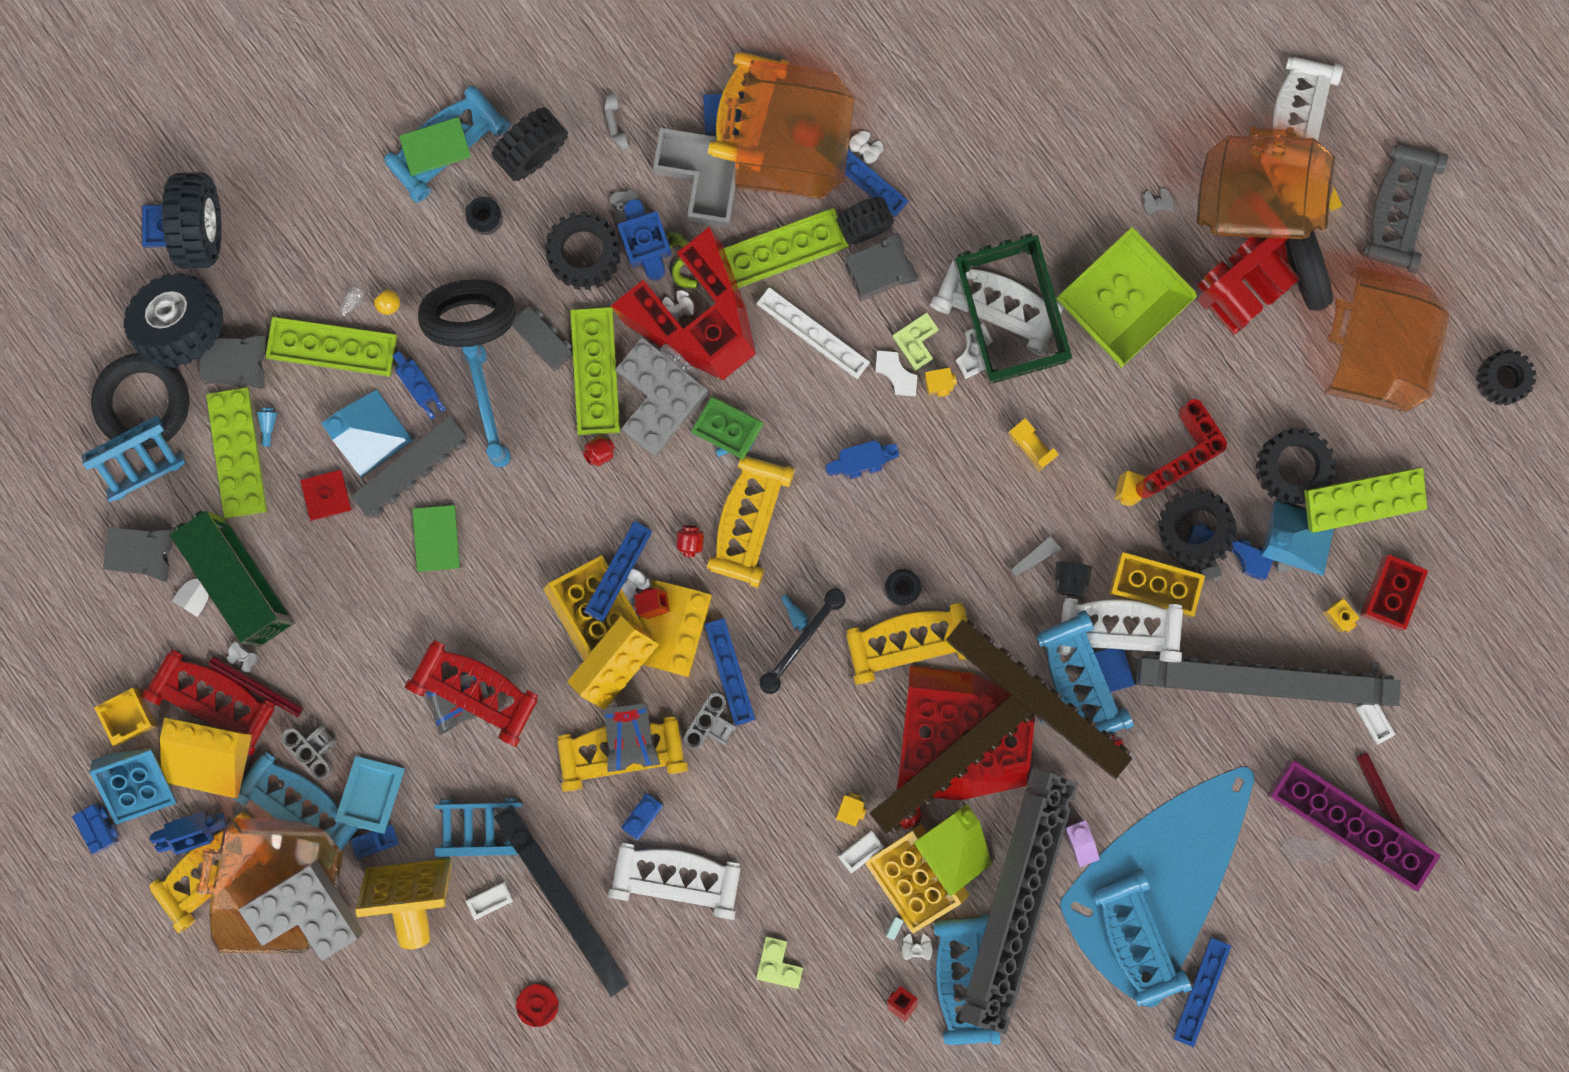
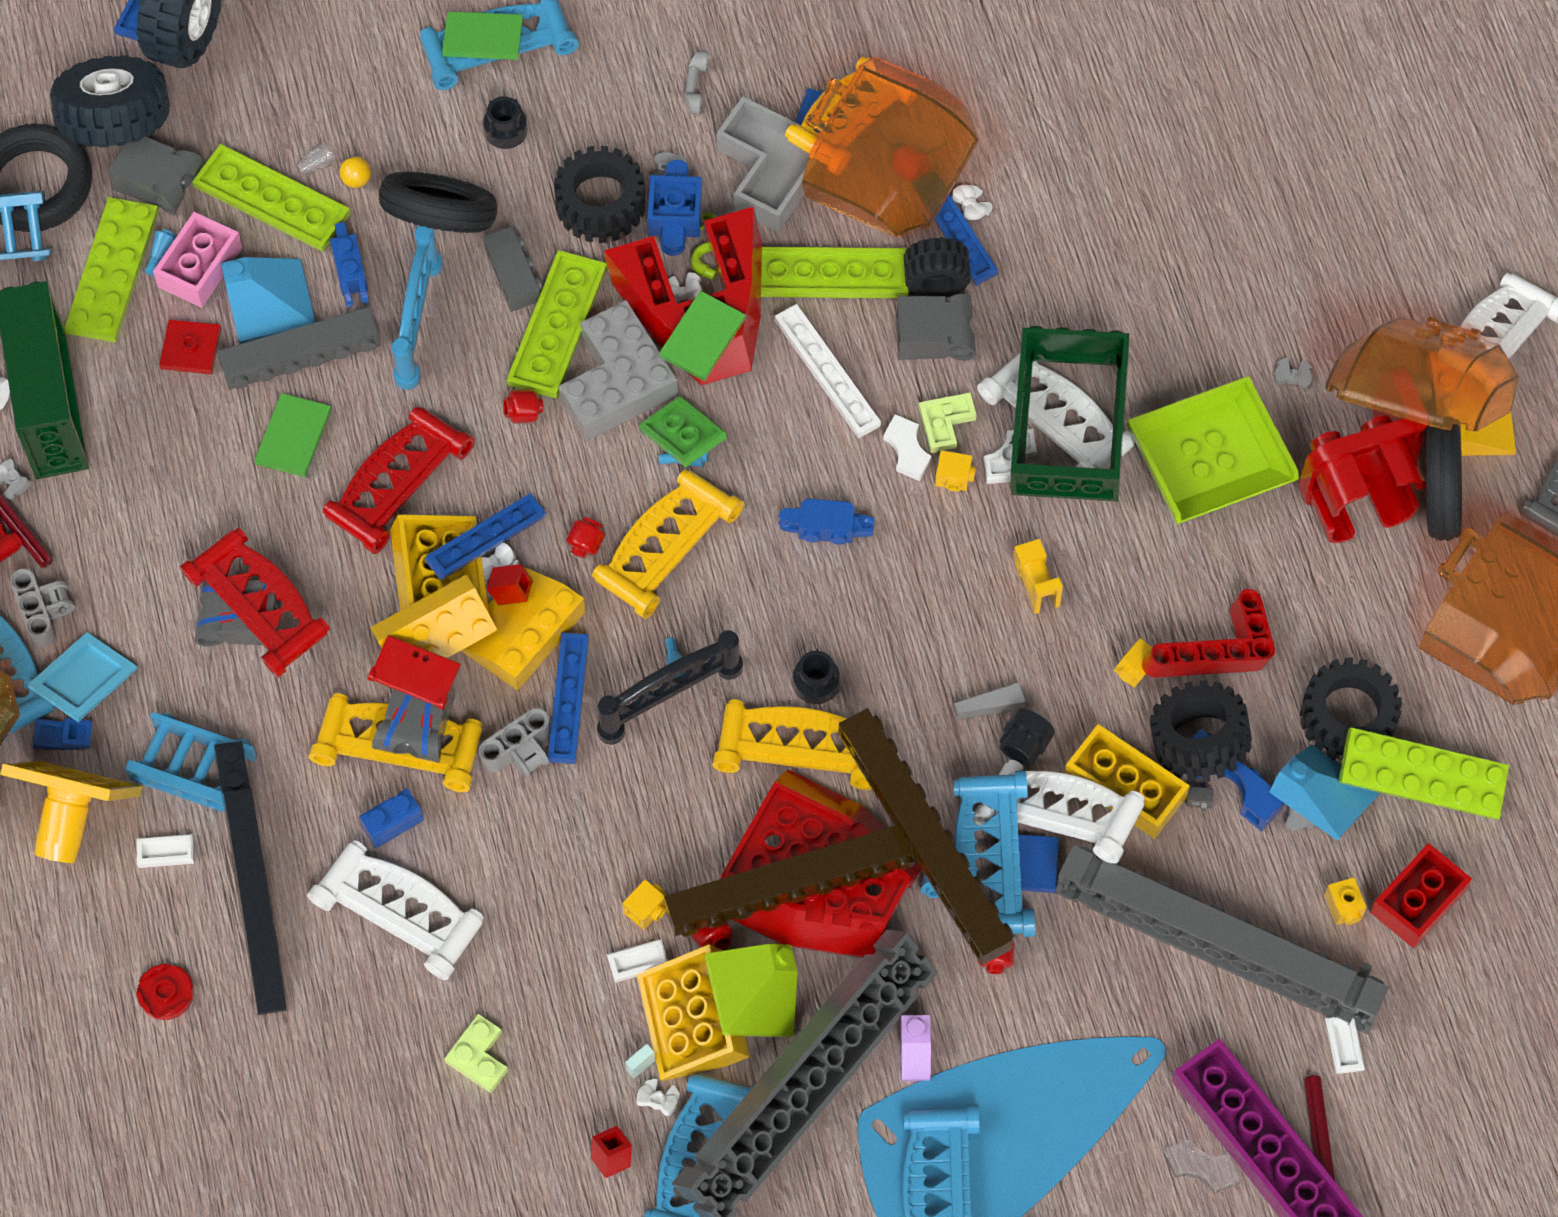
camera: 20 degrees right, 20 degrees down
(299, 424) = (194, 259): none -> bright pink brick
(523, 590) = (368, 523): none -> red piece
(529, 144) = (588, 61): black tyre -> none
(617, 712) = (422, 676): none -> red door
(676, 358) = (655, 332): clear tile -> none
(713, 349) = (702, 336): none -> bright green tile

